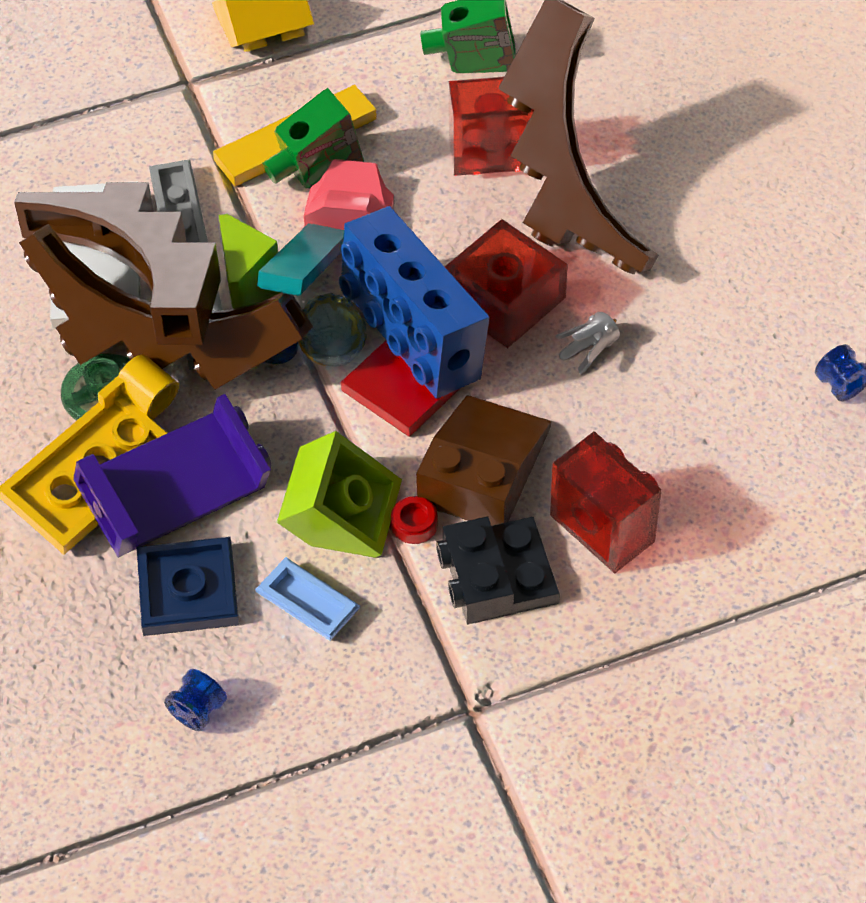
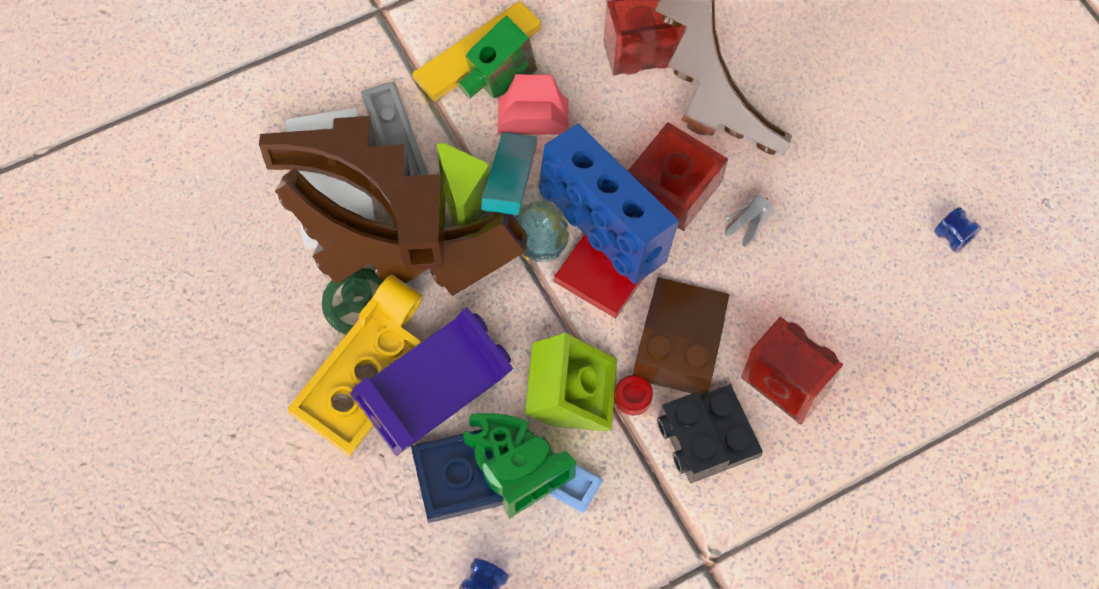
camera: 10 degrees left, 10 degrees up
(262, 572) = (521, 463): none -> green piece

